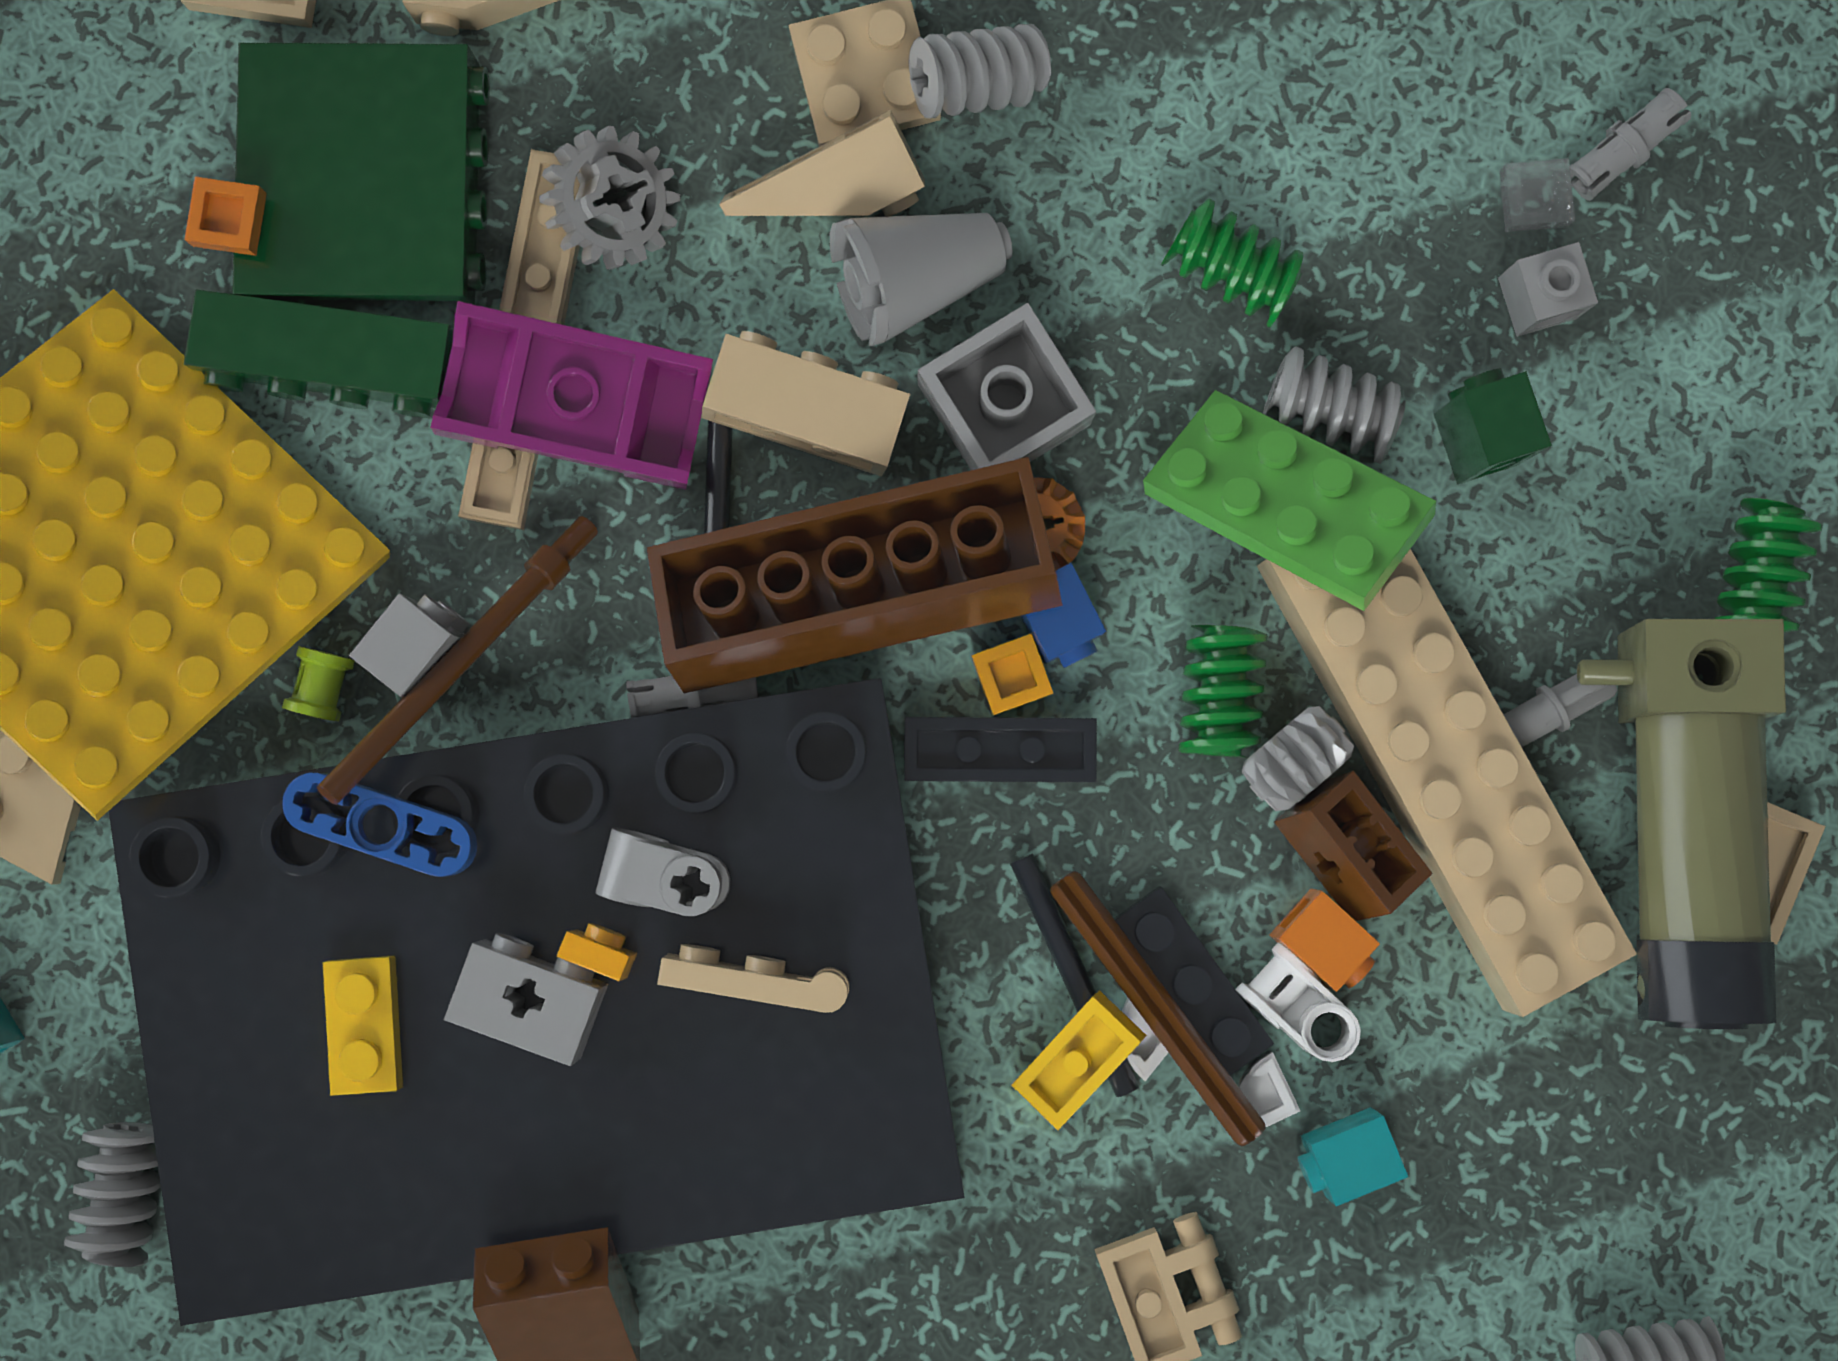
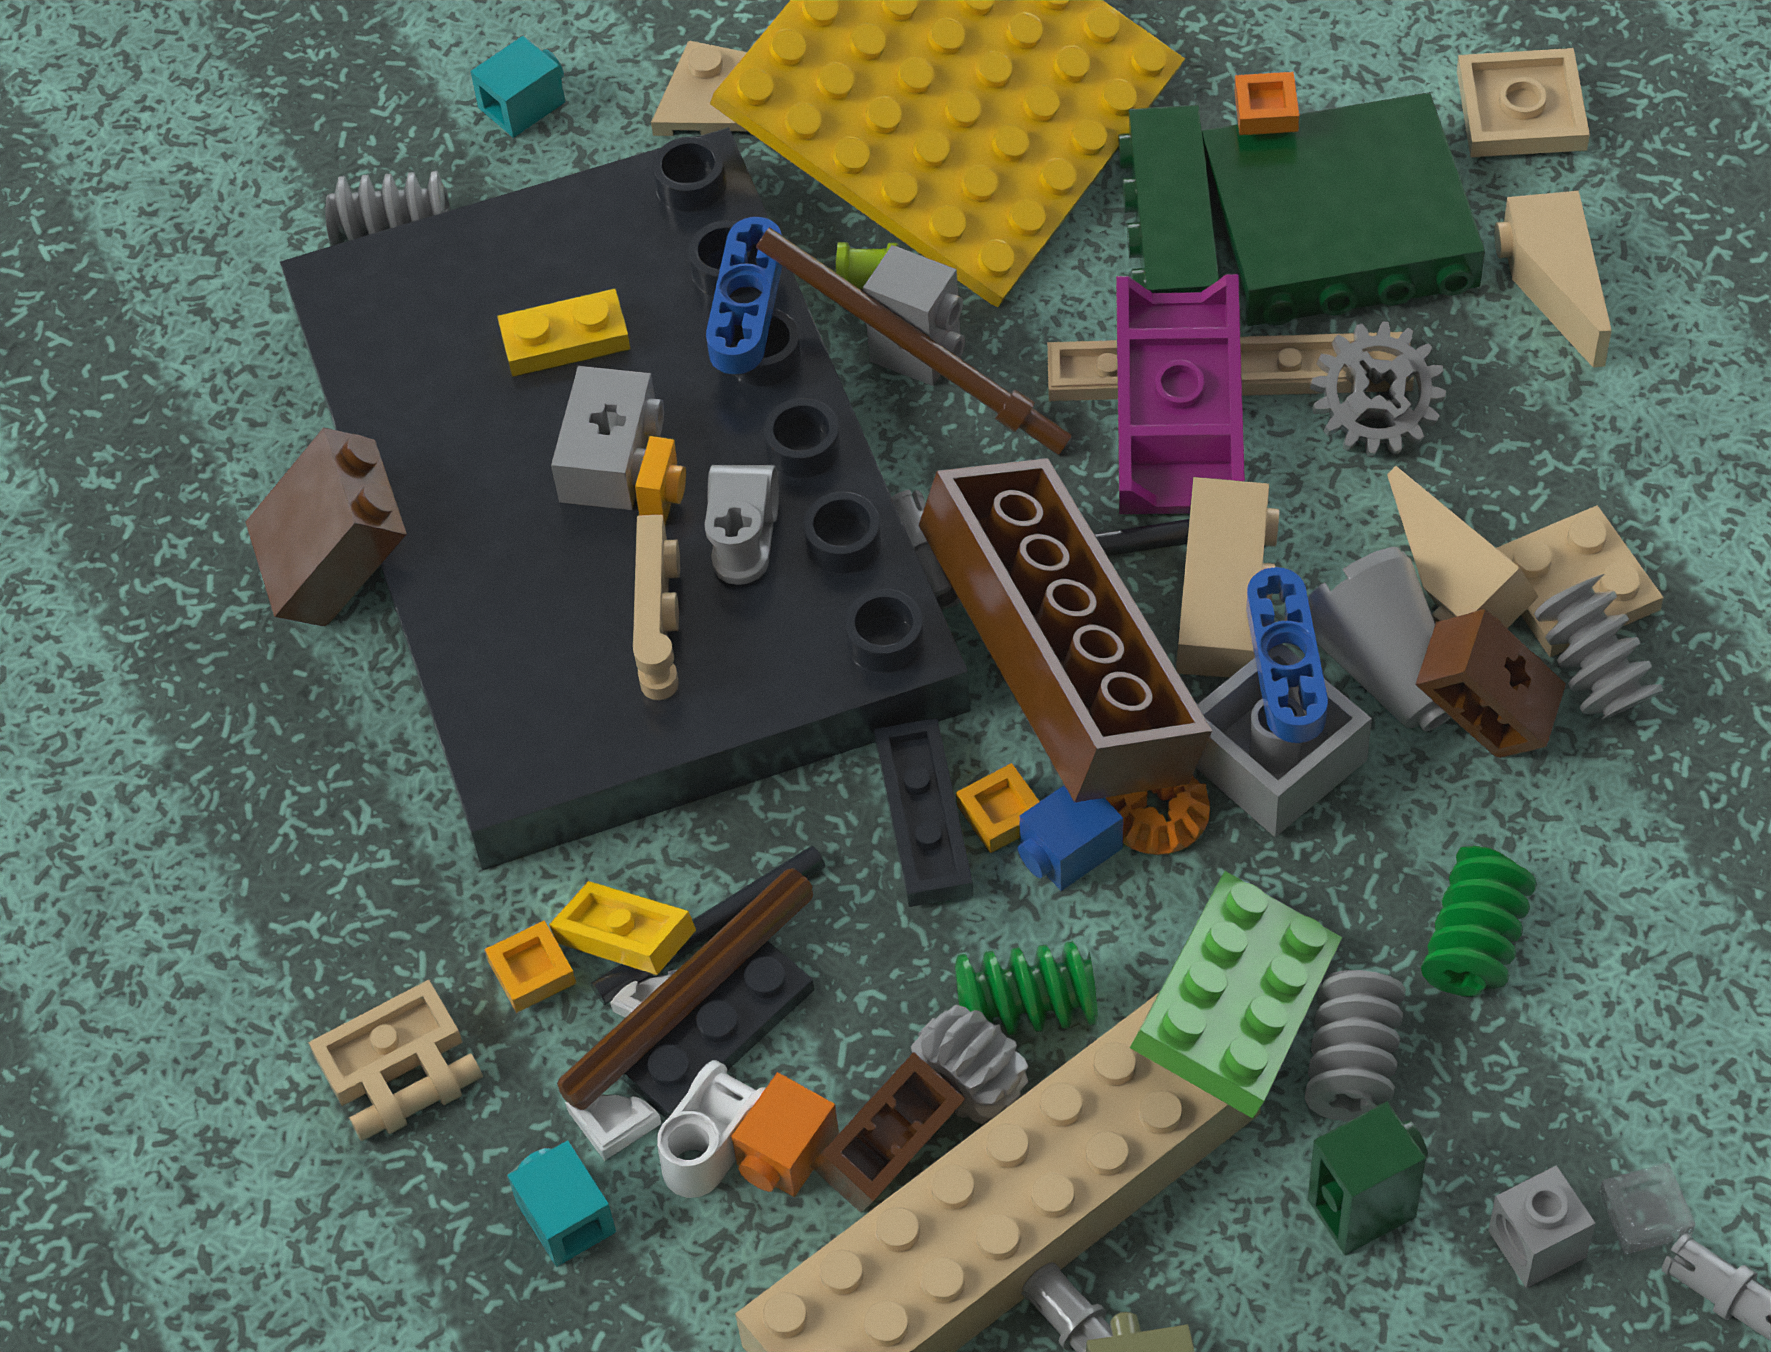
camera: 85 degrees right, 30 degrees down
(932, 341) = (1278, 678): none -> blue beam
(995, 180) = (1491, 683): none -> reddish brown brick
(1093, 1153) = (530, 966): none -> light orange plate

